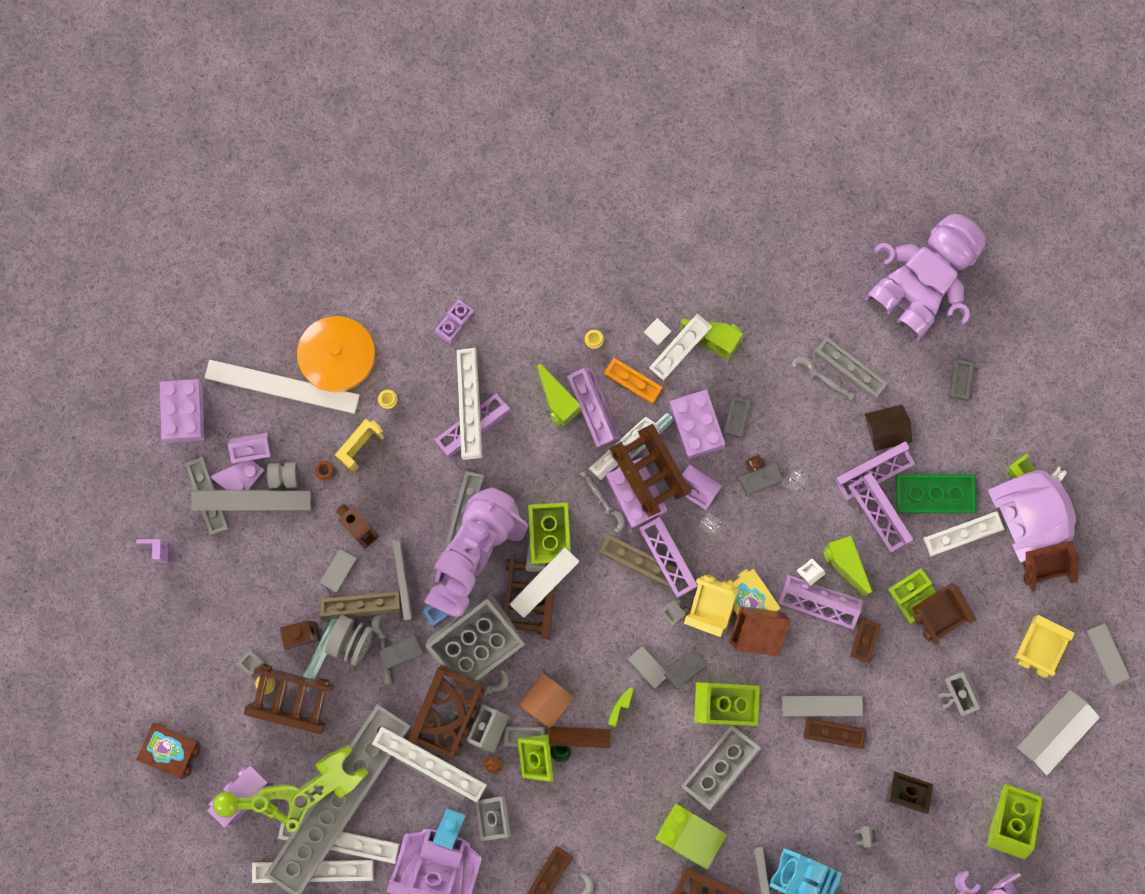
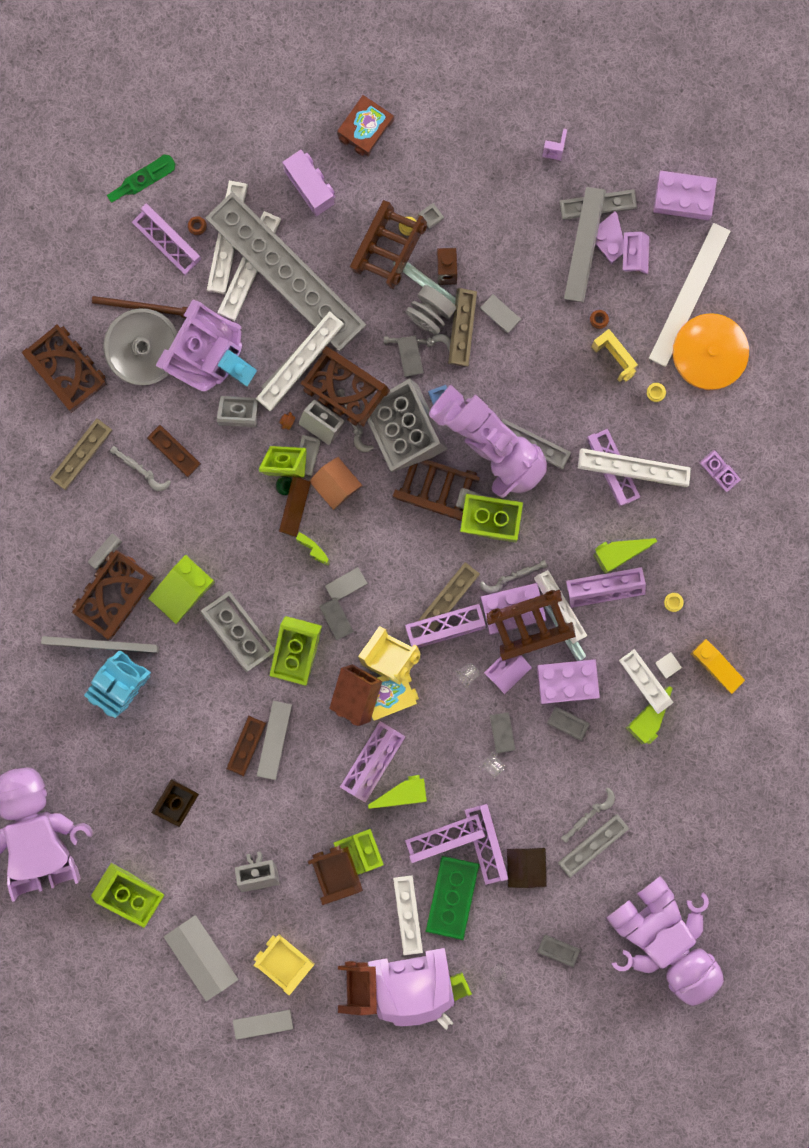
camera: 100 degrees right, 5 degrees up
(282, 475) = (602, 277): light grey wheel -> none
(331, 778) = (305, 267): lime piece -> none
(358, 527) = (535, 340): reddish brown torso -> none
(403, 583) = (475, 371): light grey tile -> none
(544, 582) = (445, 502): white tile -> none
(633, 380) = (624, 631): light orange tile -> none
(647, 284) = (717, 665): none -> yellow slope
(673, 612) = (392, 619): light grey tile -> none
(754, 463) = (519, 729): reddish brown plate -> none
(811, 572) = (402, 759): white tile -> none
(865, 640) = (326, 795): reddish brown plate -> none
(869, 836) = (144, 755): light grey tile -> none

